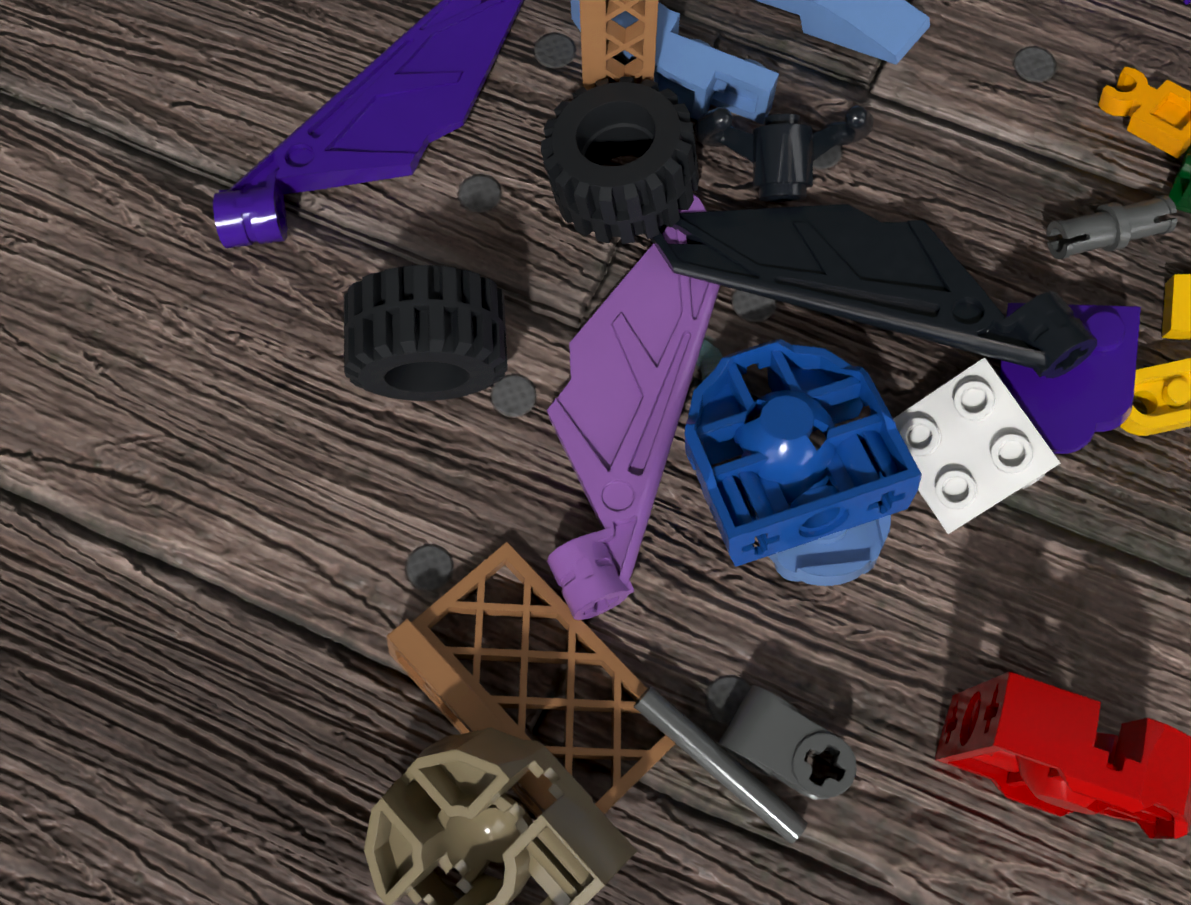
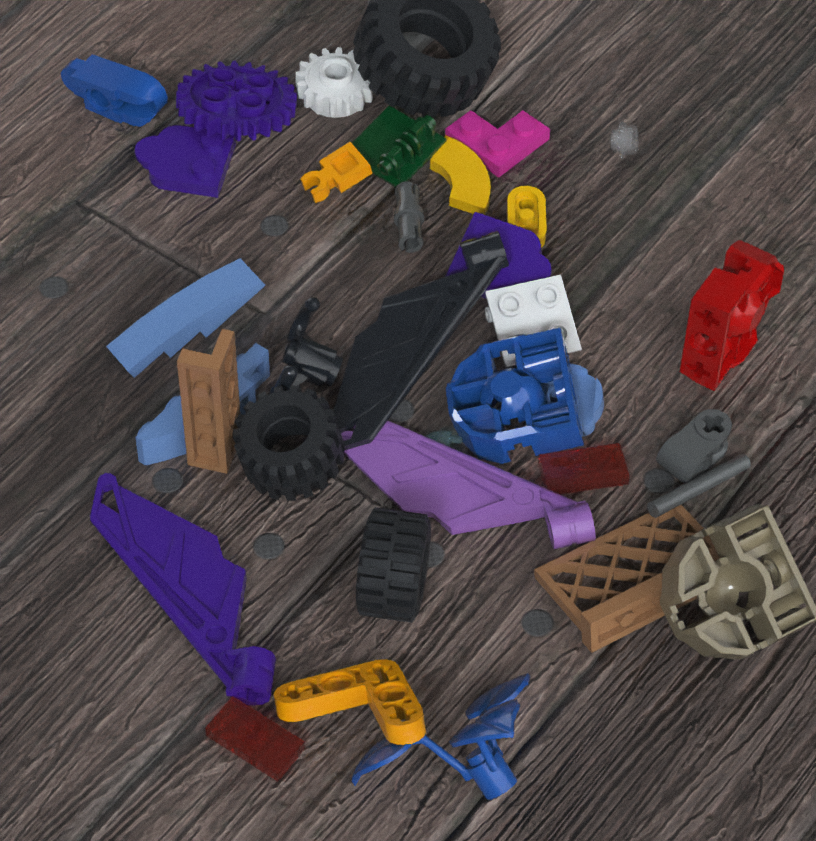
camera: 80 degrees left, 20 degrees down
(85, 504) = (486, 763): none -> blue plant
(167, 247) = (255, 738): none -> clear red plate
(242, 362) = (356, 687): none -> light orange beam
(704, 578) = (584, 469): none -> clear red plate

